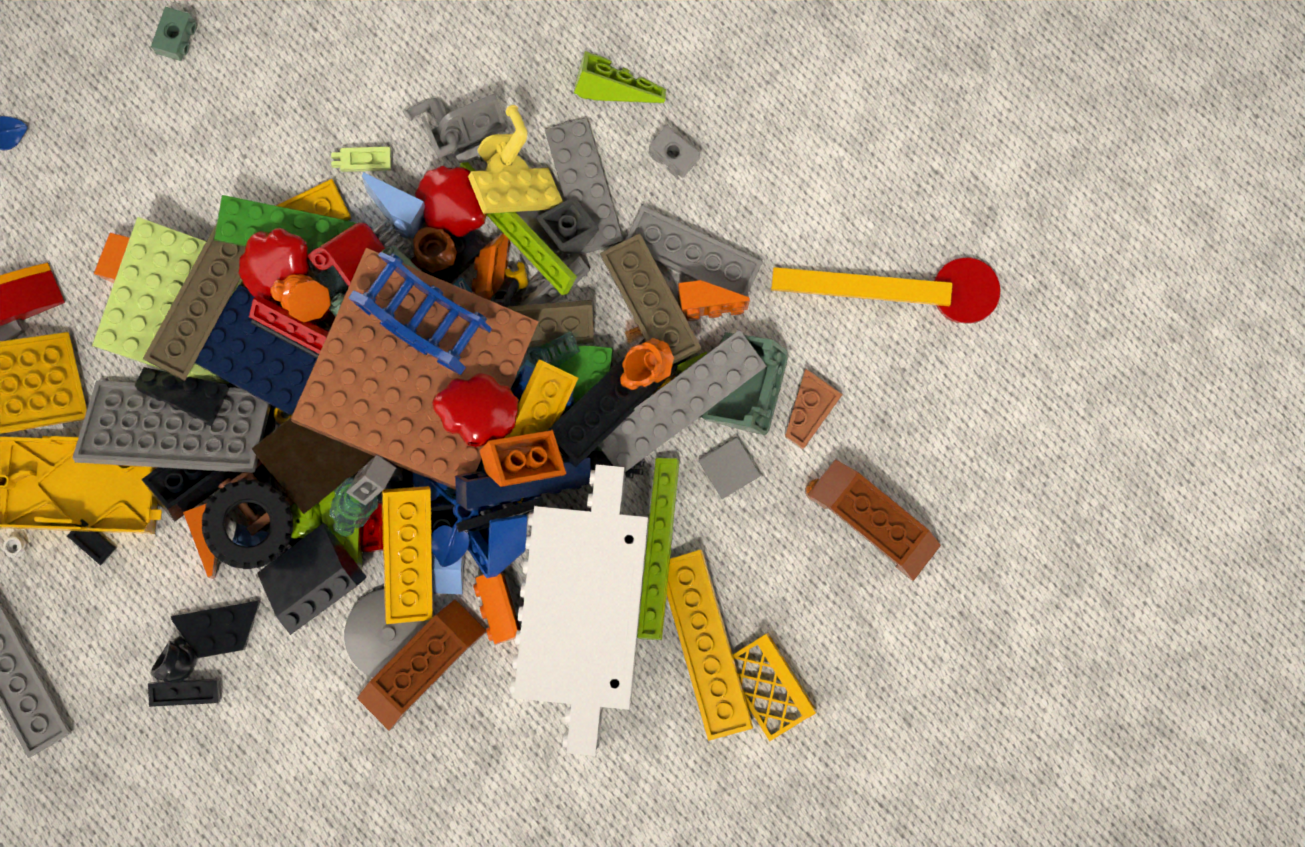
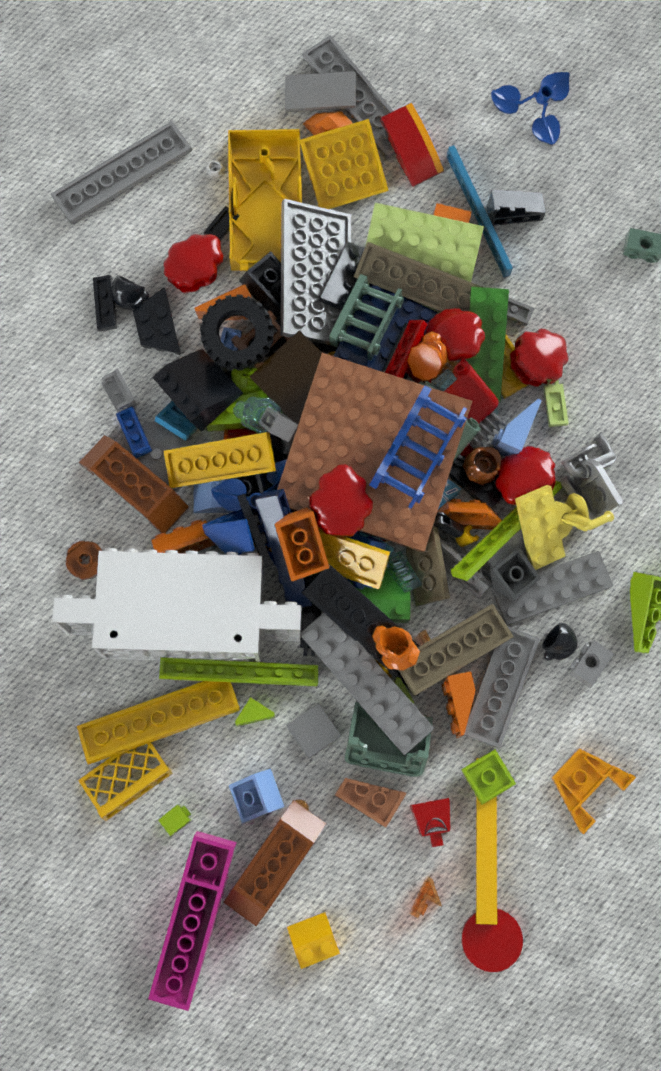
camera: 80 degrees right, 5 degrees down
(107, 224) = (479, 211): none -> dark azure tile
(108, 180) = (515, 207): none -> wedge
(141, 578) = (193, 262): none -> red piece
(222, 379) = (354, 303): none -> sand green fence
(246, 187) = (519, 312): none -> light grey plate
(302, 679) = (118, 391): none -> light grey hinge
(306, 171) = (539, 357): none -> red piece
(349, 609) = (175, 421): none -> dark azure plate
(357, 661) = (134, 432): none -> blue tile
(510, 739) = (74, 559): none -> dark orange plate
(648, 184) = (560, 642): none -> black piece
(705, 534) = (253, 712): none -> lime slope
(793, 277) = (488, 776): none -> lime tile
(799, 537) = (256, 795): none -> light blue slope
(800, 178) = (580, 778): none -> light orange wing
(820, 629) = (175, 819): none -> lime brick
(835, 342) = (432, 819): none -> red torso
(914, 355) = (427, 892): none -> clear orange slope
(932, 612) = (192, 920): none -> dark pink slope
(959, 483) = (313, 940): none -> yellow slope

